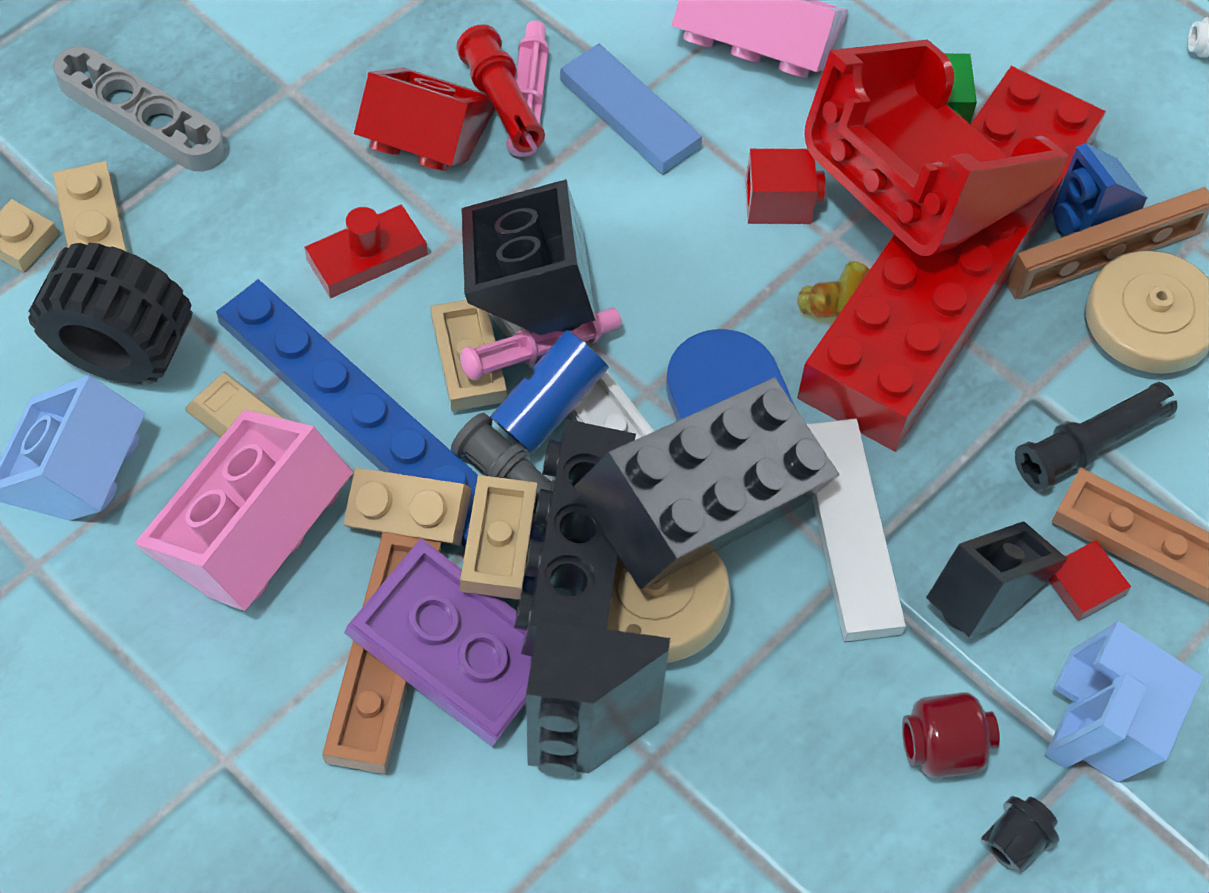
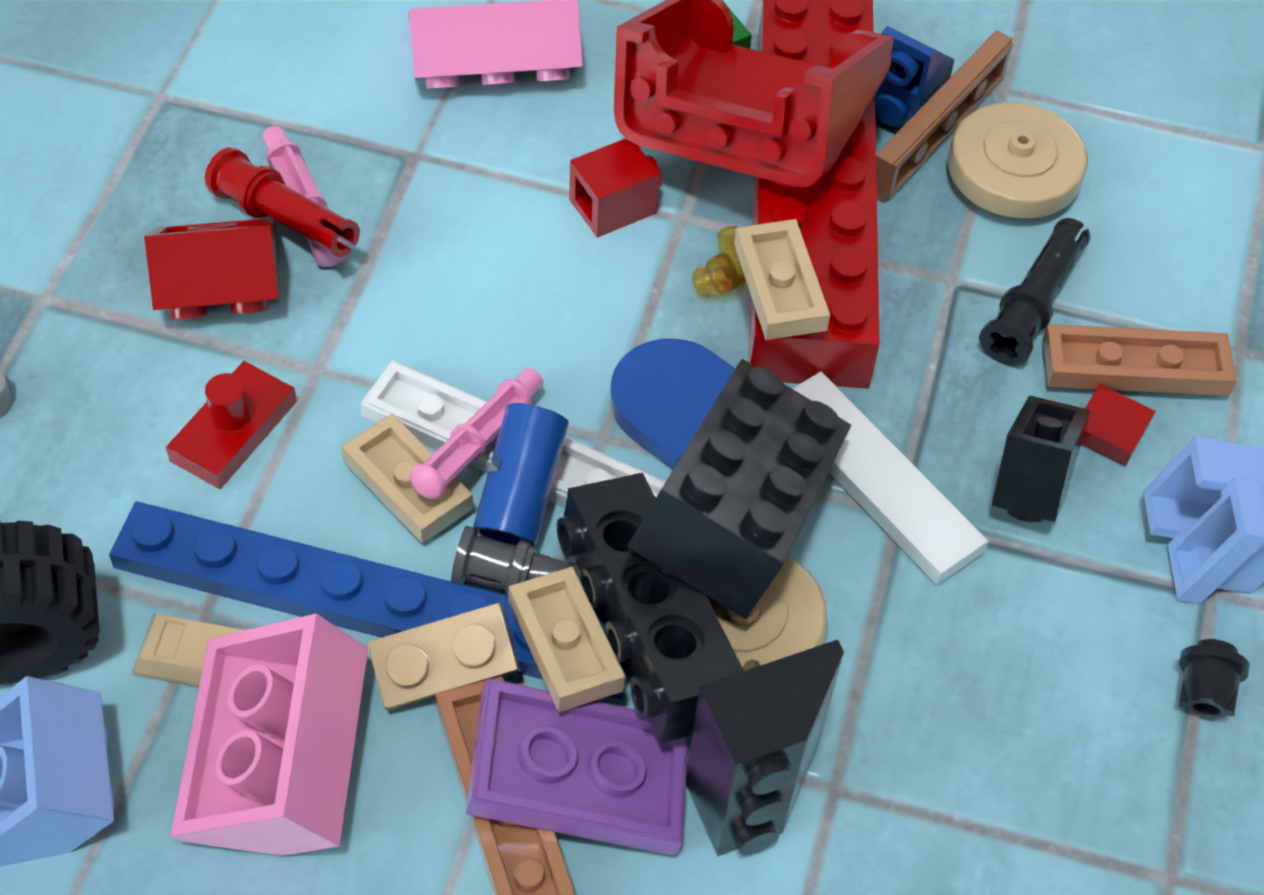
camera: 30 degrees left, 5 degrees down
(528, 259) = (427, 350): black slope -> none
(631, 108) = (416, 174): medium blue tile -> none
(846, 325) = (781, 279): none -> tan plate
(949, 735) = (1095, 621): dark red head -> none

